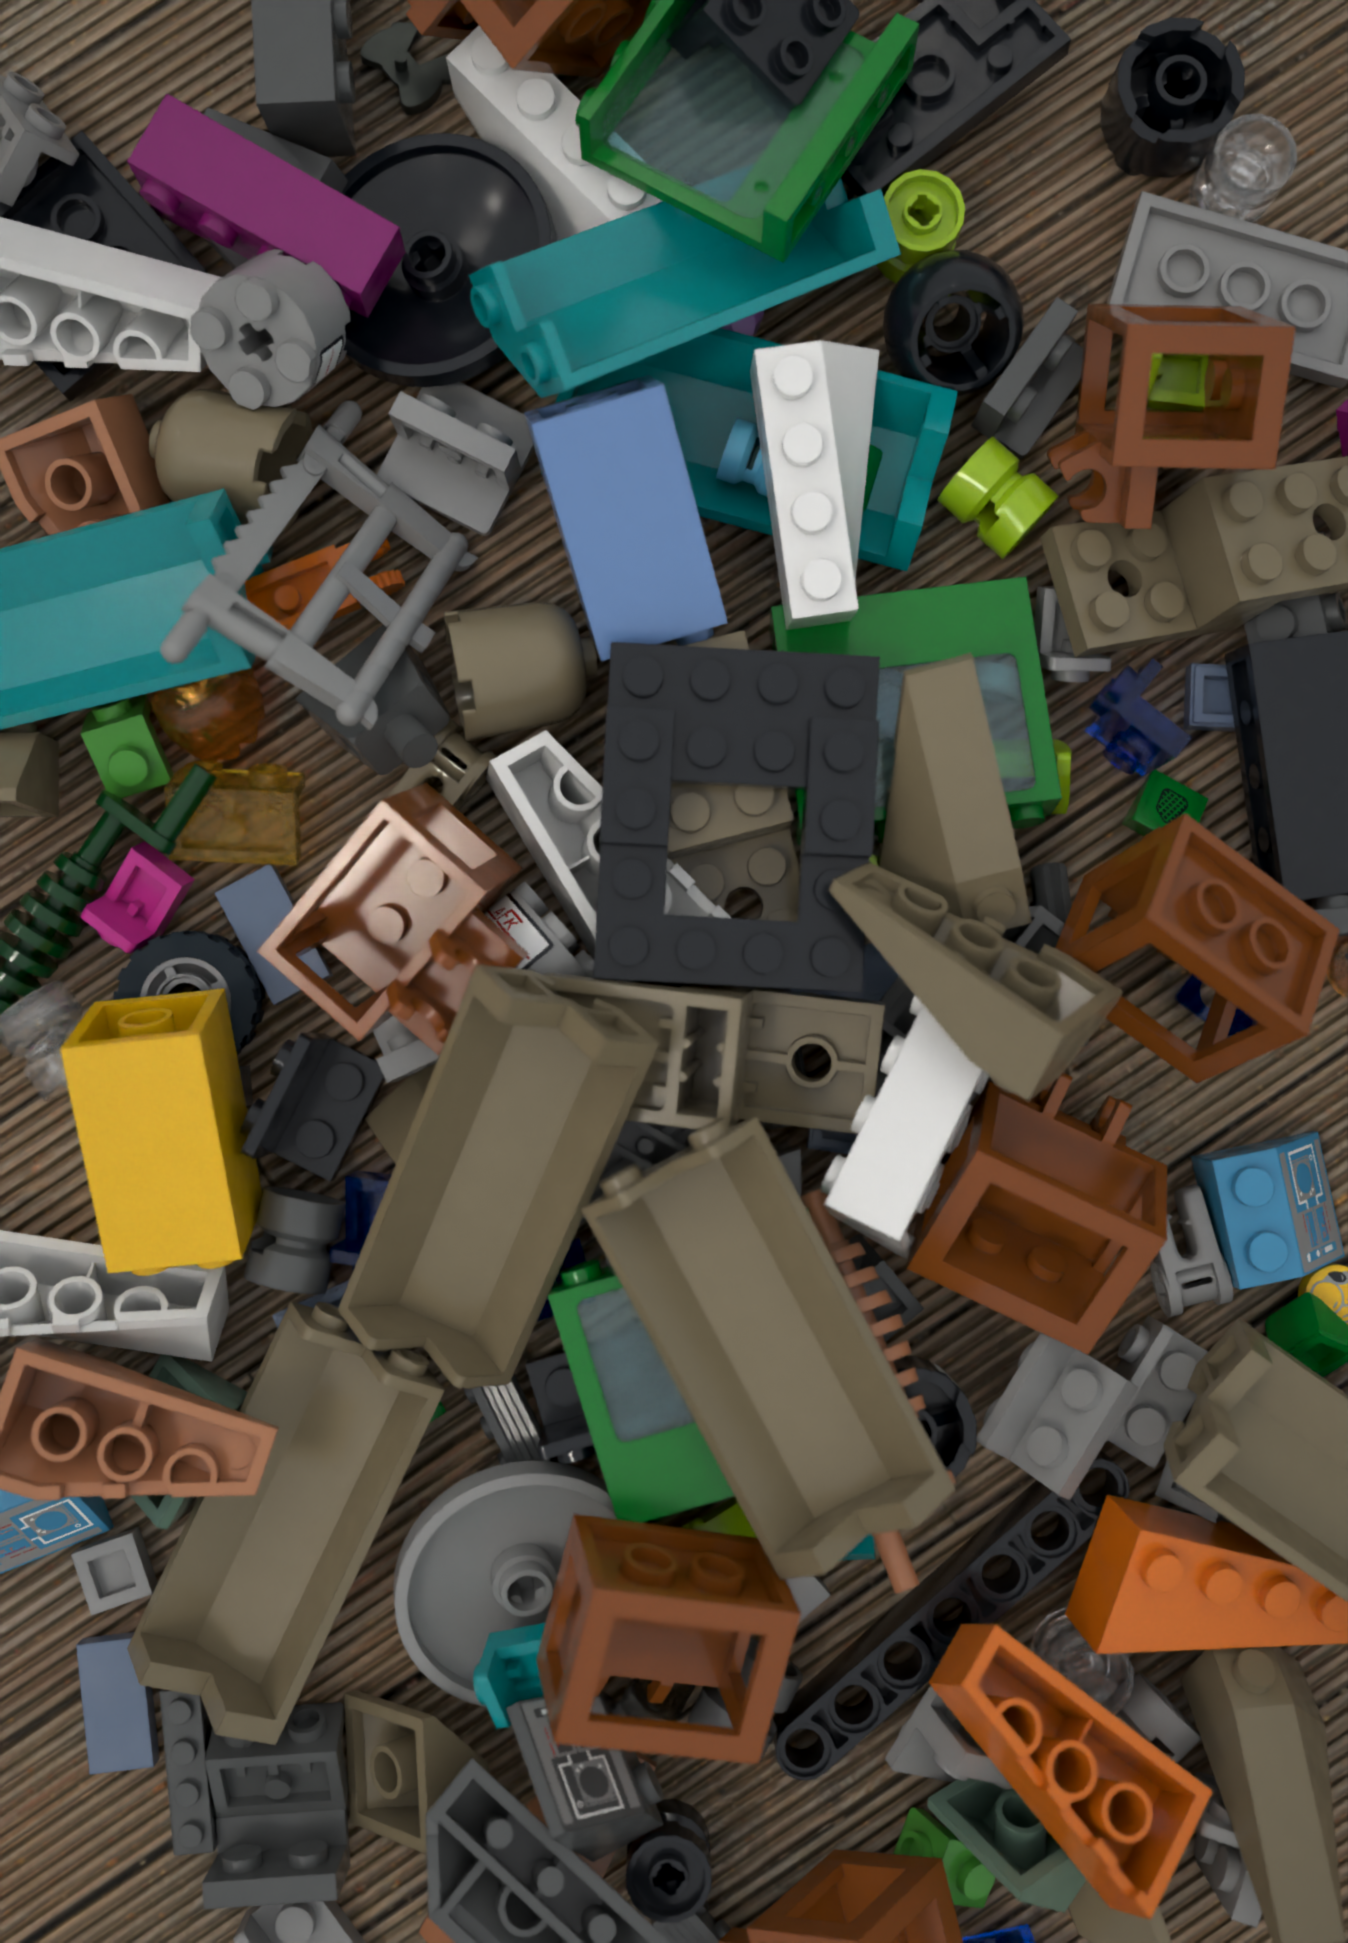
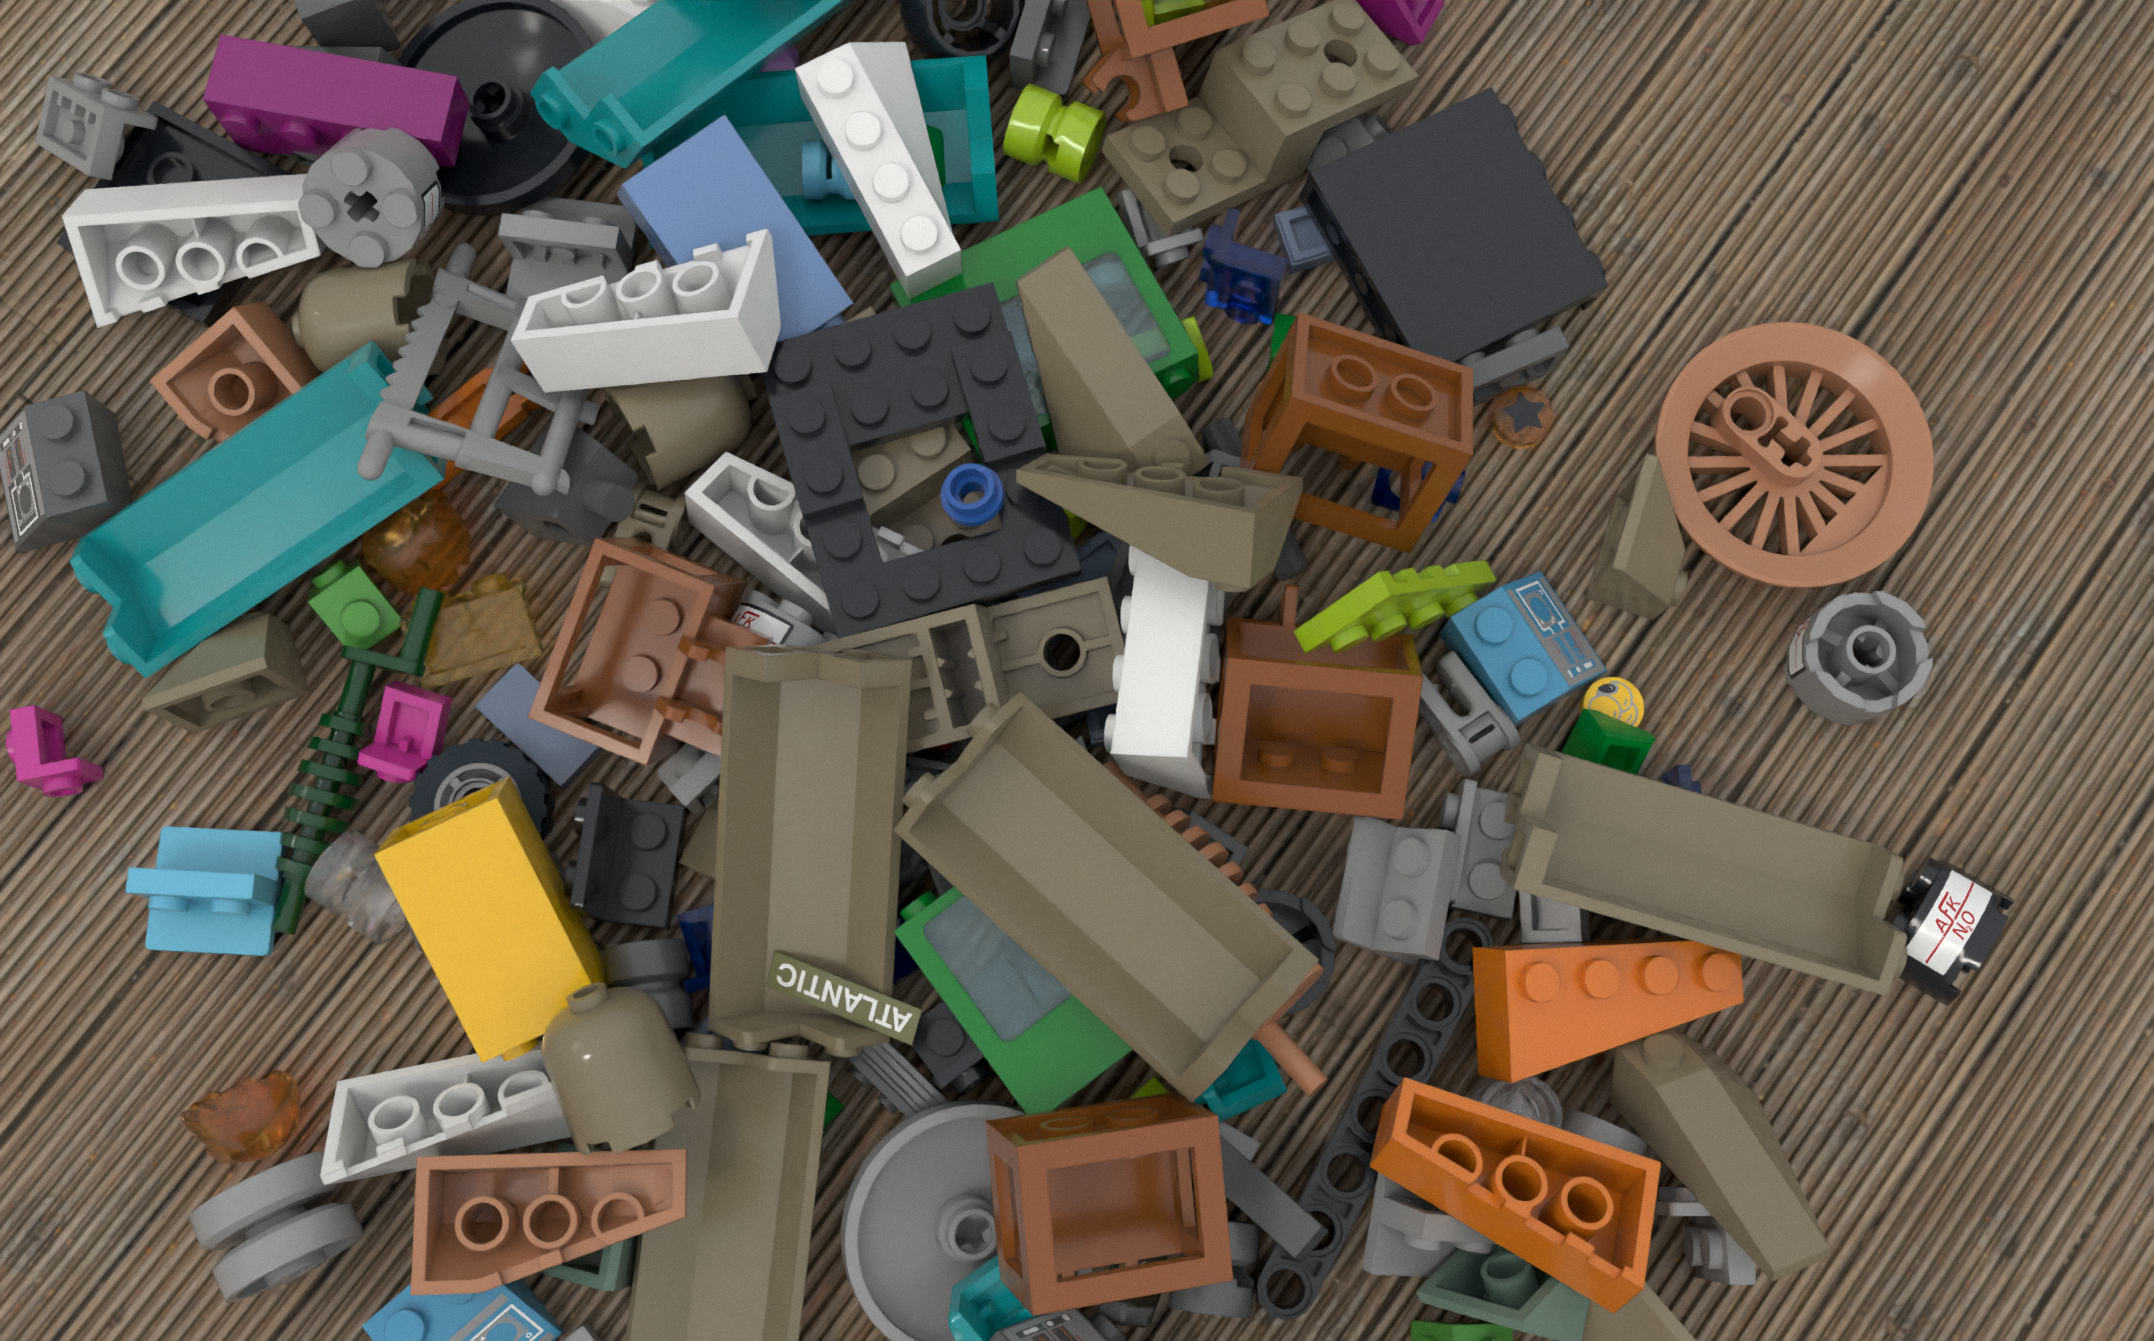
camera: 15 degrees left, 10 degrees down
(235, 1336) = (616, 1068): none -> dark tan cylinder
(478, 1329) = (843, 998): none -> olive sticker
(522, 584) = (657, 322): none -> white wedge
(773, 863) = (967, 479): none -> blue plate
(820, 1672) = (1268, 1204): none -> dark grey piece
(1162, 1142) = (1387, 604): none -> lime wing

